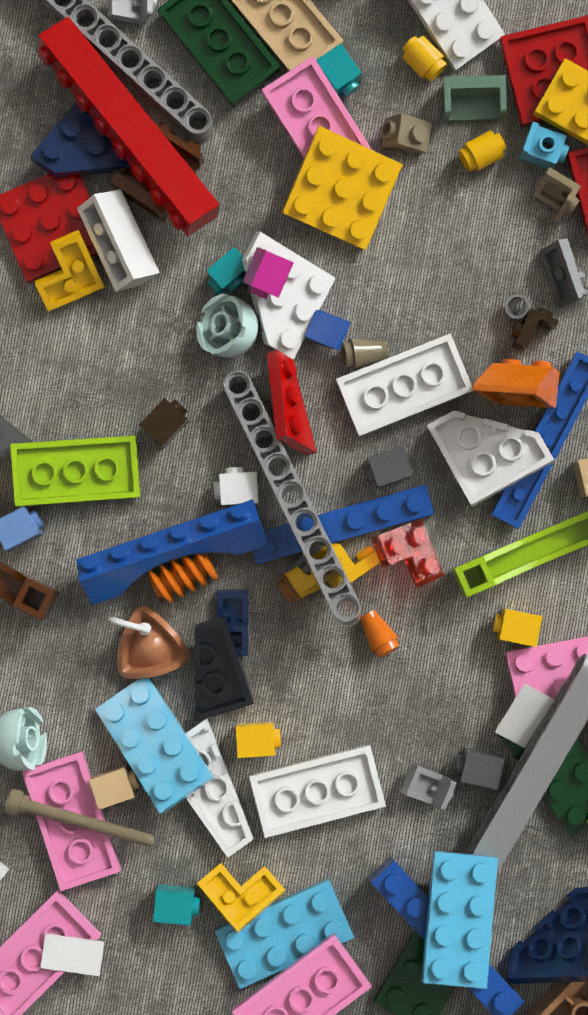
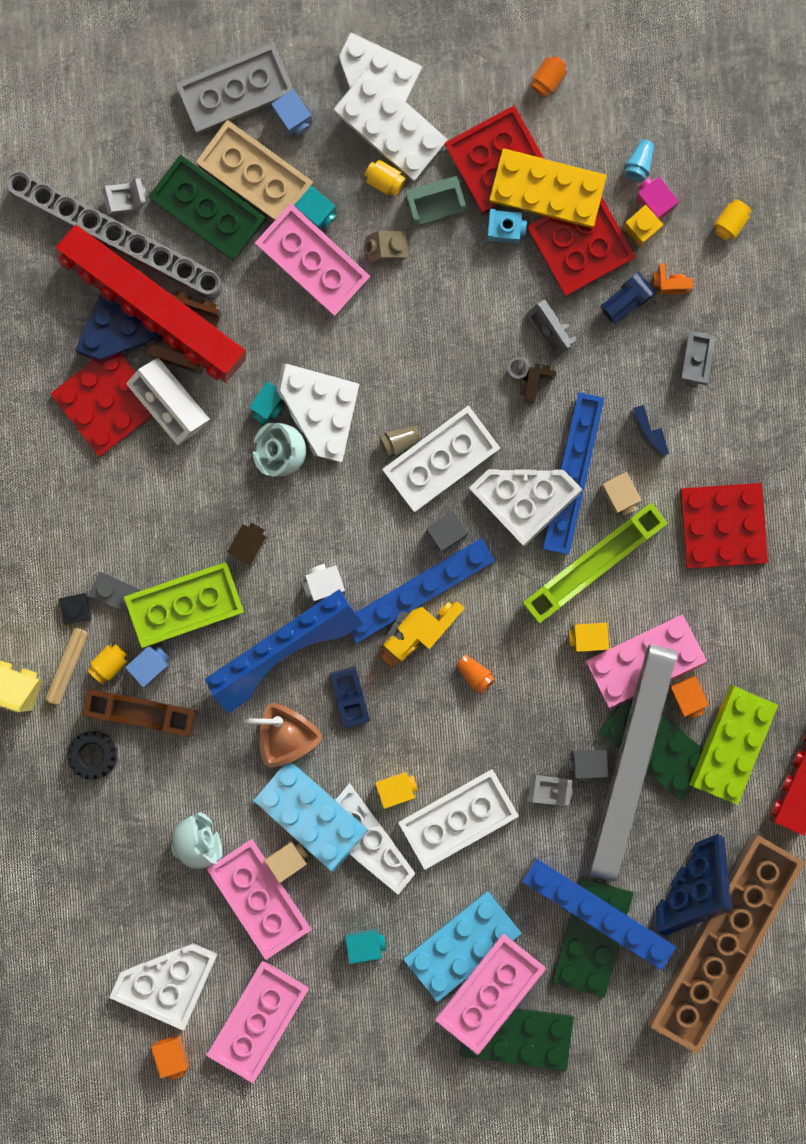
camera: 10 degrees left, 0 degrees up
(19, 803) = (212, 895): dark tan piece -> none
(72, 954) = (289, 1010): white sticker -> none
(75, 278) = (140, 442): yellow plate -> none
(182, 575) = (296, 669): orange piece -> none
(218, 671) = (349, 741): black wing -> none
(240, 903) = (419, 929): yellow plate -> none
(267, 273) = (301, 397): dark pink brick -> none
(286, 482) = (366, 566): light grey beam -> none
(288, 405) = (348, 502): red wing -> none
(327, 330) = (364, 430): blue slope -> none
(341, 188) = (344, 307): yellow plate -> none
(415, 547) = (485, 592): clear red plate -> none
(459, 919) = (603, 892): medium azure plate -> none
(482, 151) = (454, 244): yellow brick -> none
(519, 384) = (537, 433): orange slope -> none
(524, 715) = (614, 709): white sticker -> none
(558, 193) = (527, 262): dark tan bracket -> none

